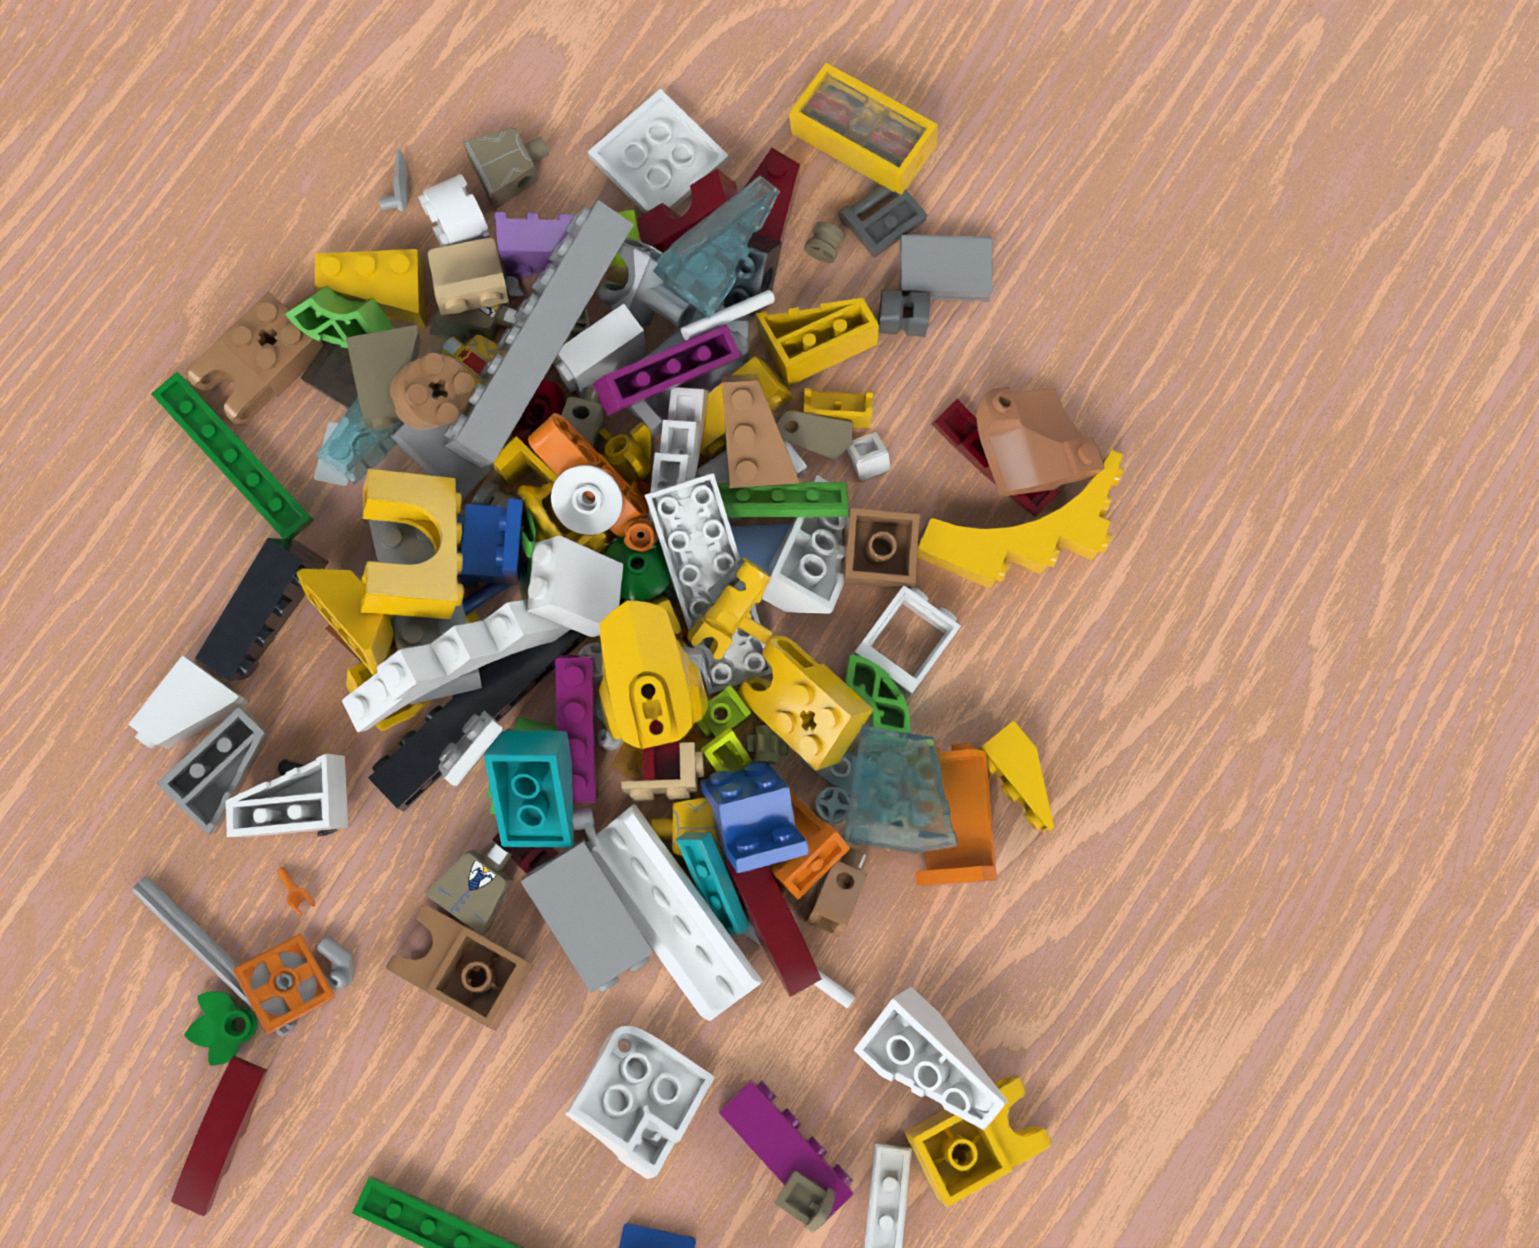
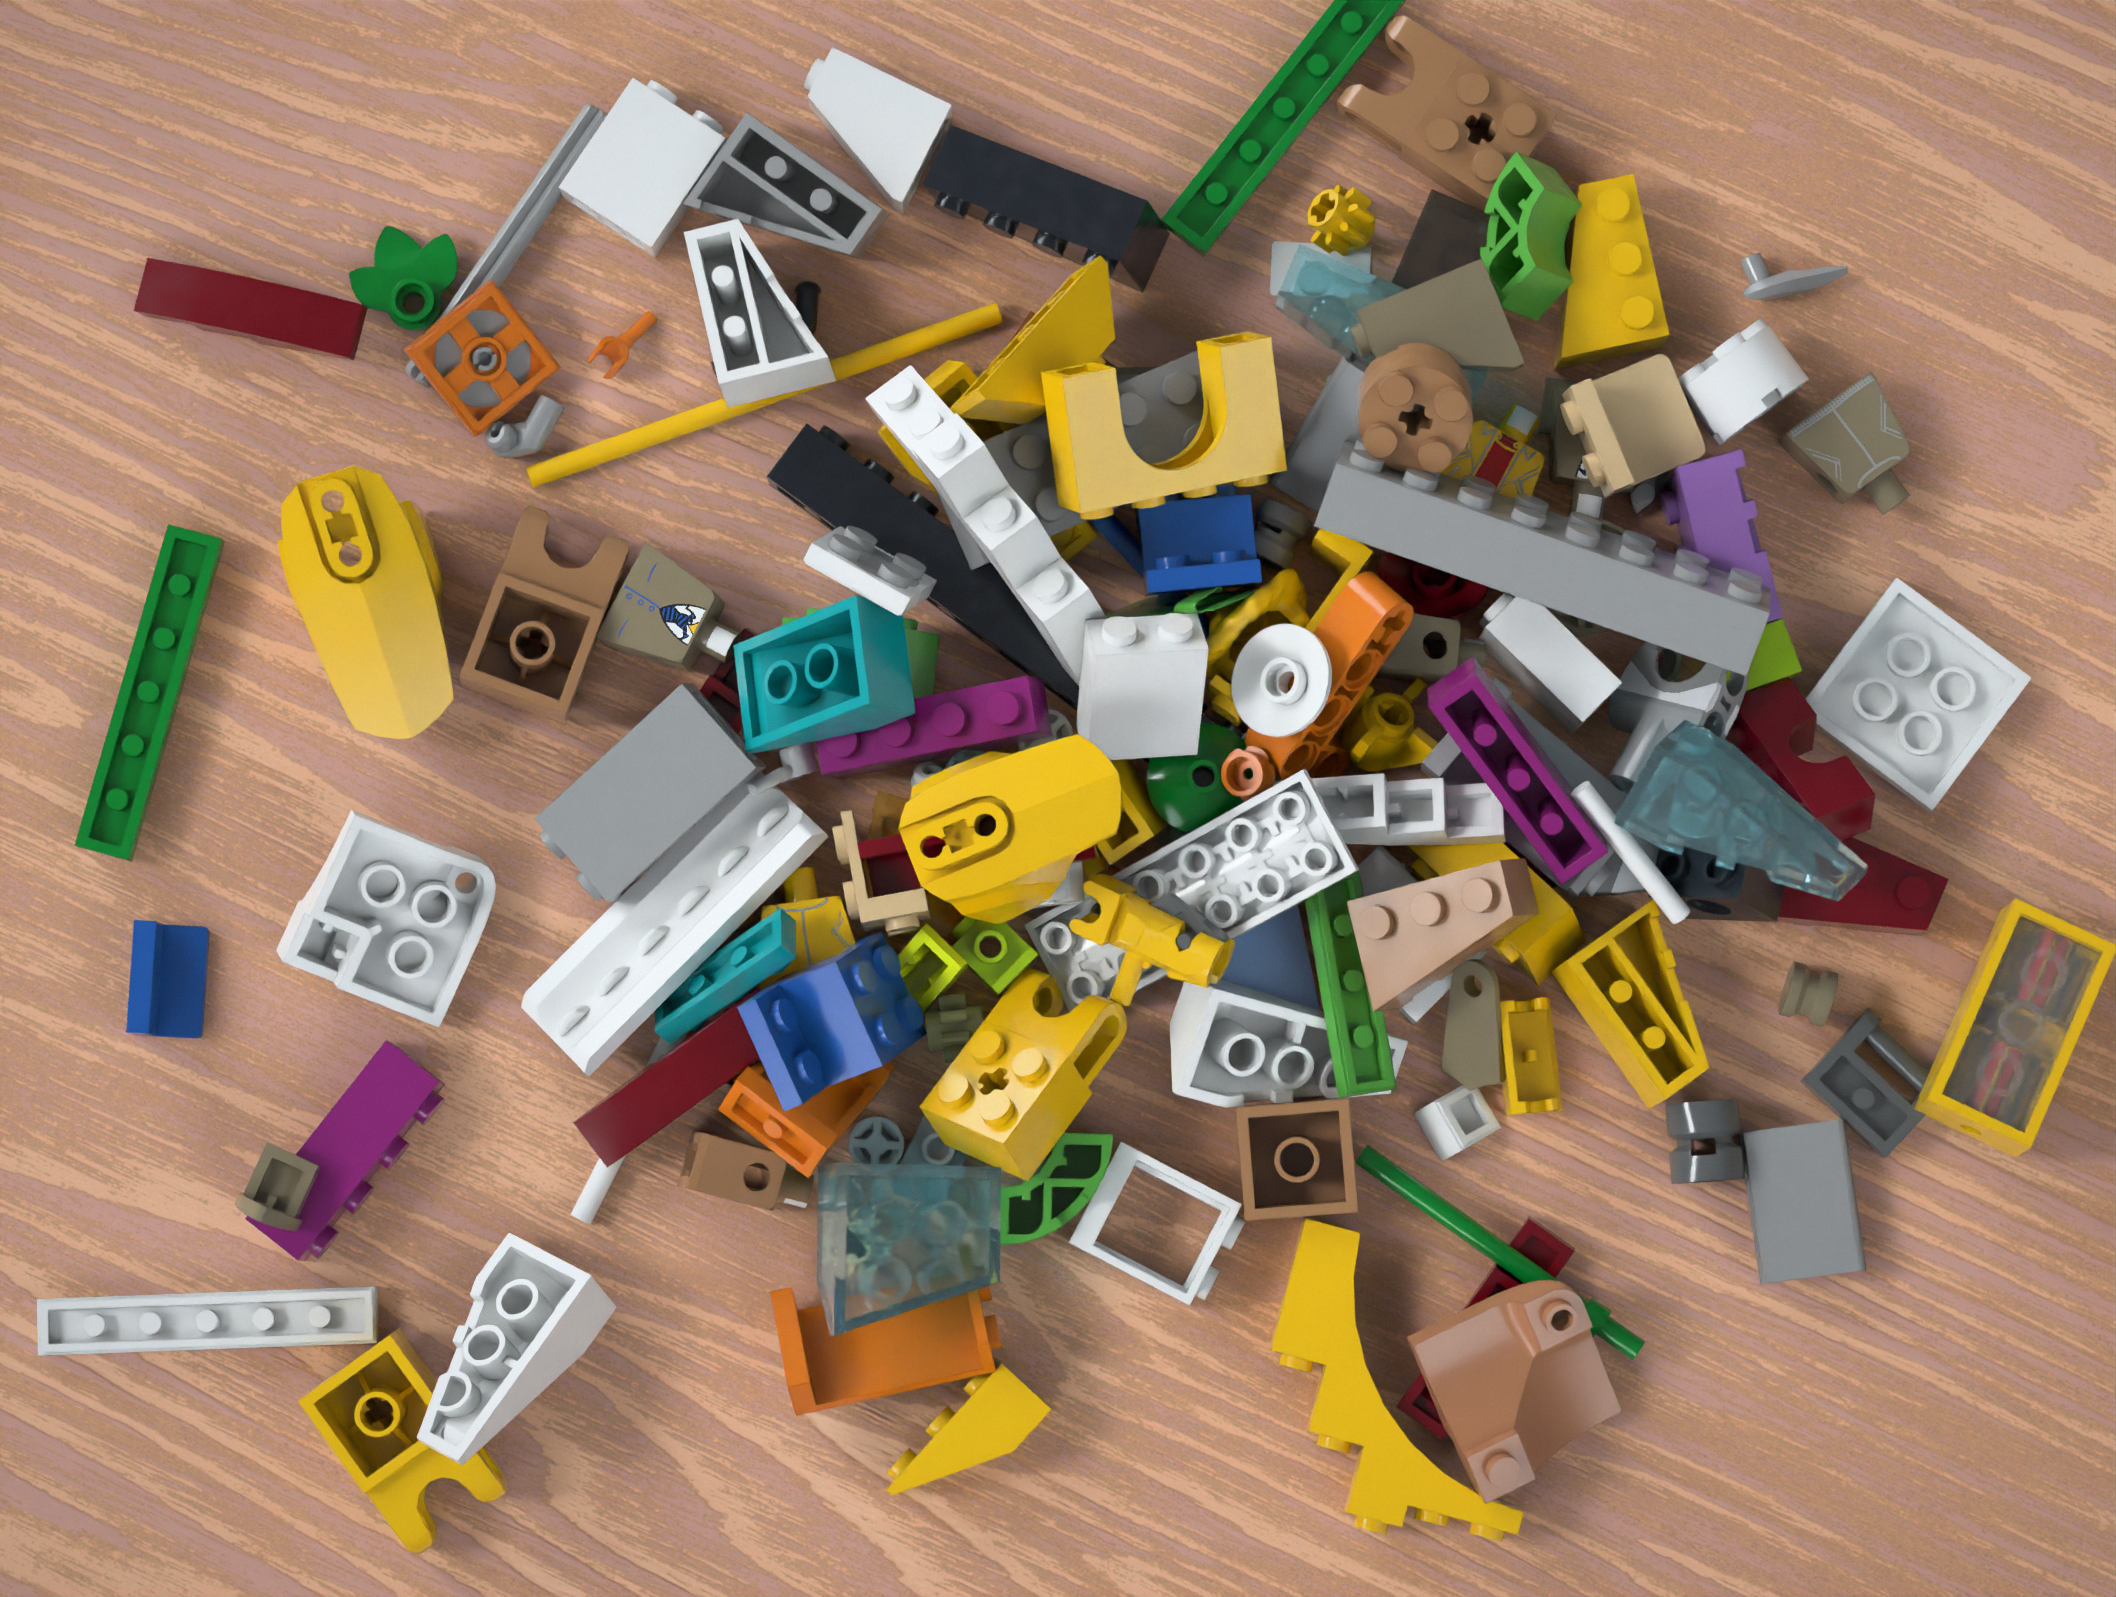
camera: 85 degrees right, 5 degrees up
(180, 859) = (643, 165): none -> white brick
(307, 432) = (1341, 220): none -> yellow gear
(350, 835) = (718, 411): none -> yellow piece
(439, 1079) = (373, 619): none -> yellow piece
(943, 449) = (1490, 1244): none -> green bar

